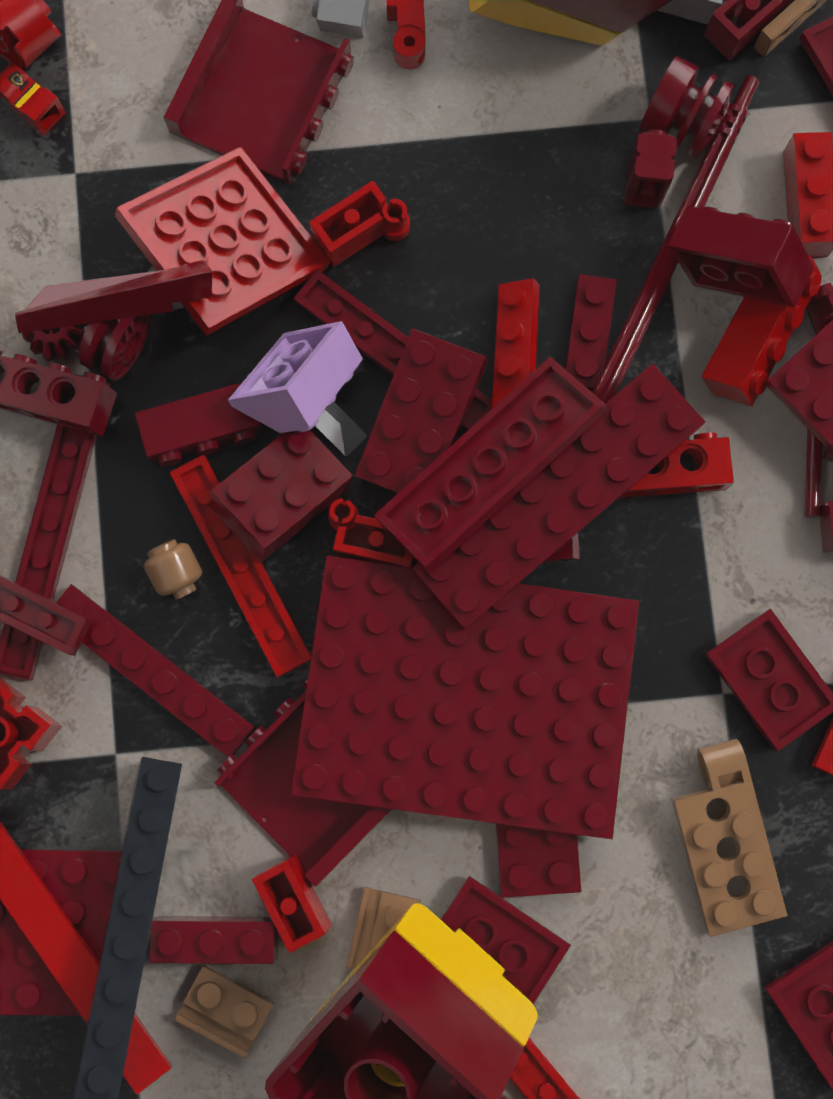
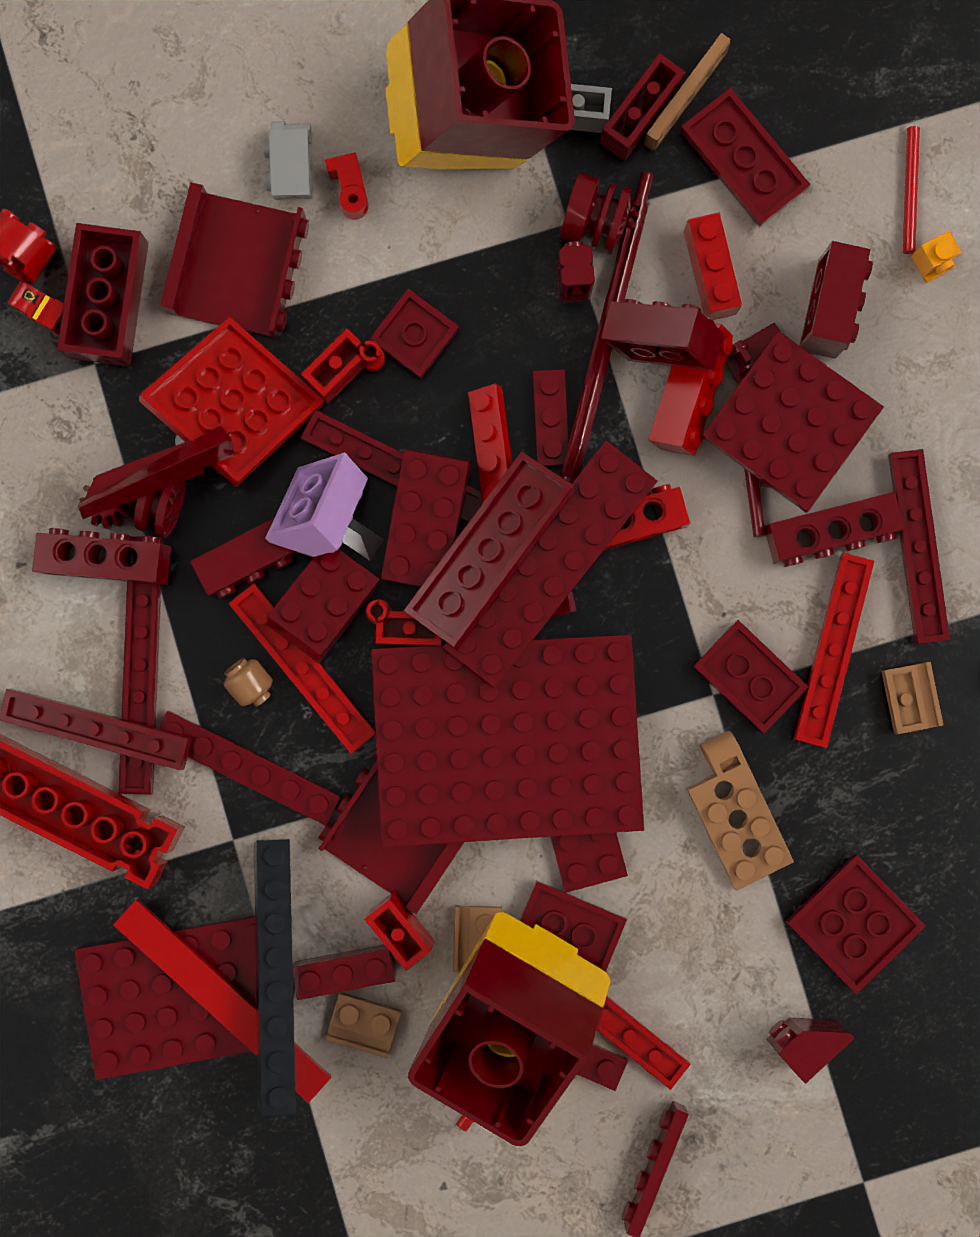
camera: 15 degrees left, 5 degrees up
(101, 94) = (103, 294): none -> dark red brick
(450, 206) = (414, 333): none -> dark red plate

